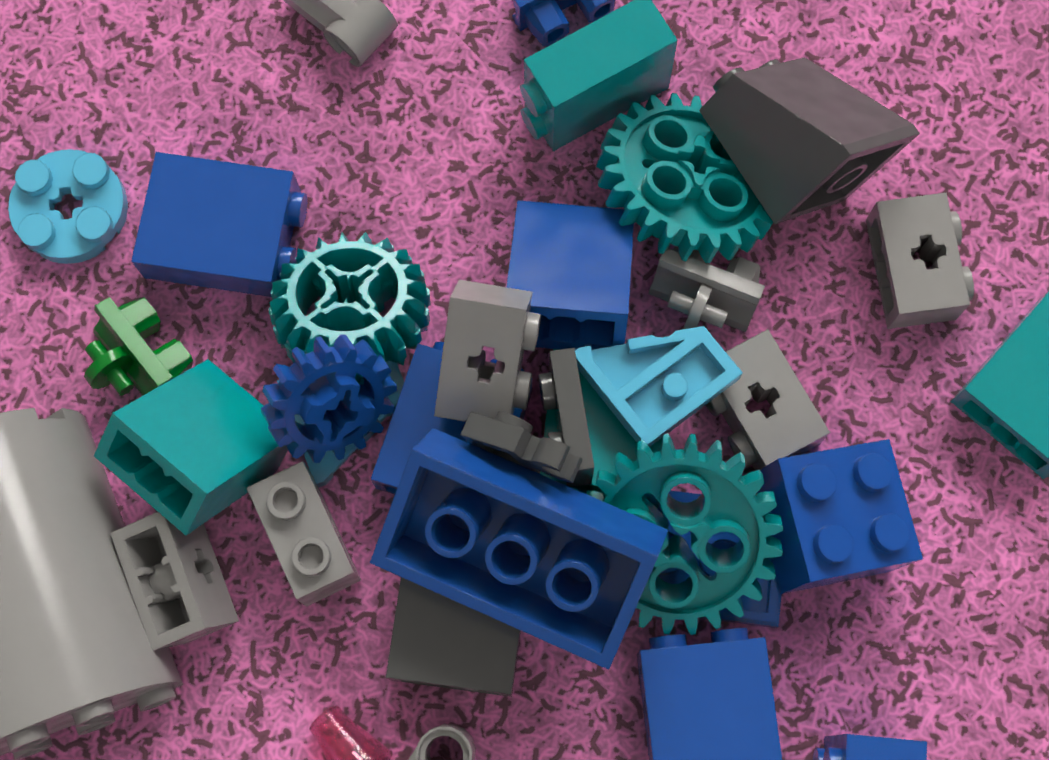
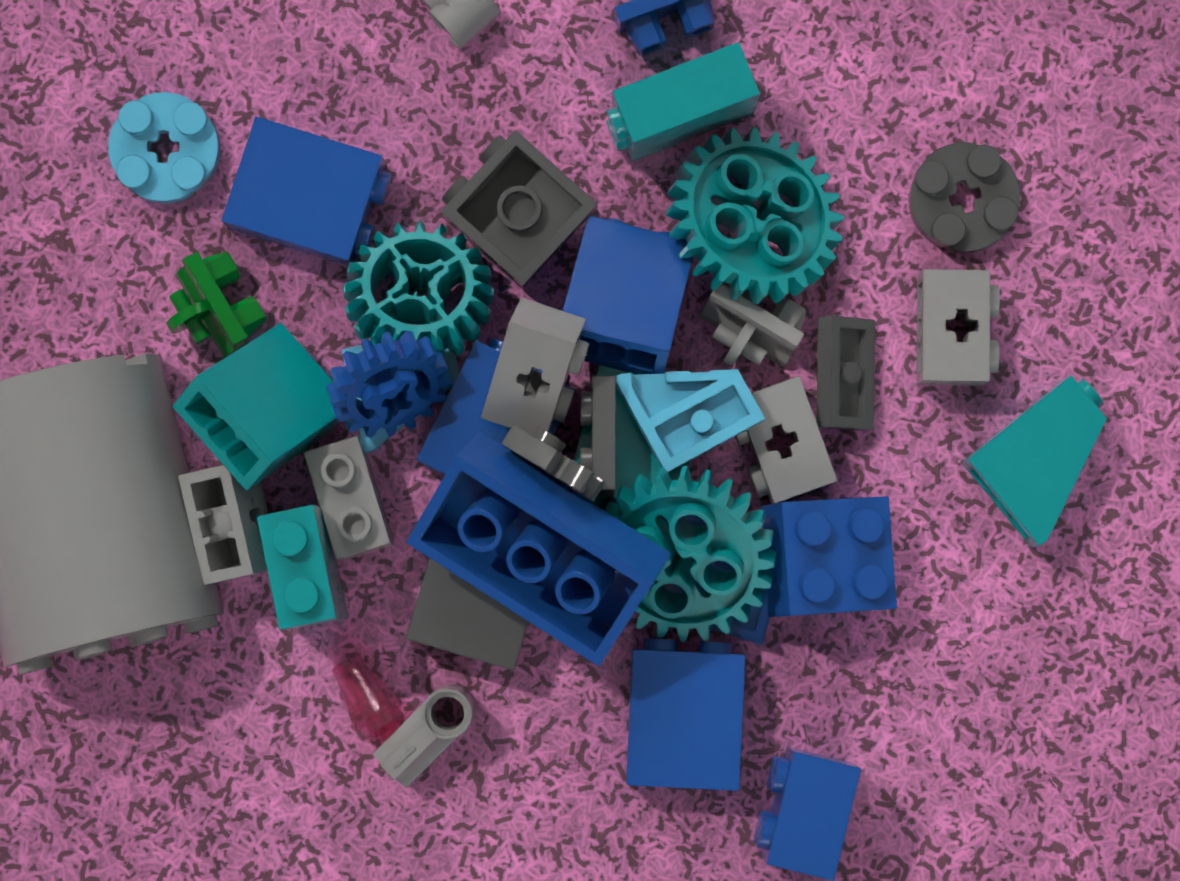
camera: 10 degrees right, 10 degrees up
(258, 614) = (301, 568): none -> teal brick
(441, 205) = (517, 207): none -> dark grey plate
(802, 134) = (864, 191): dark grey slope -> none
(813, 324) = (845, 373): none -> dark grey plate
(932, 148) = (950, 225): none -> dark grey plate

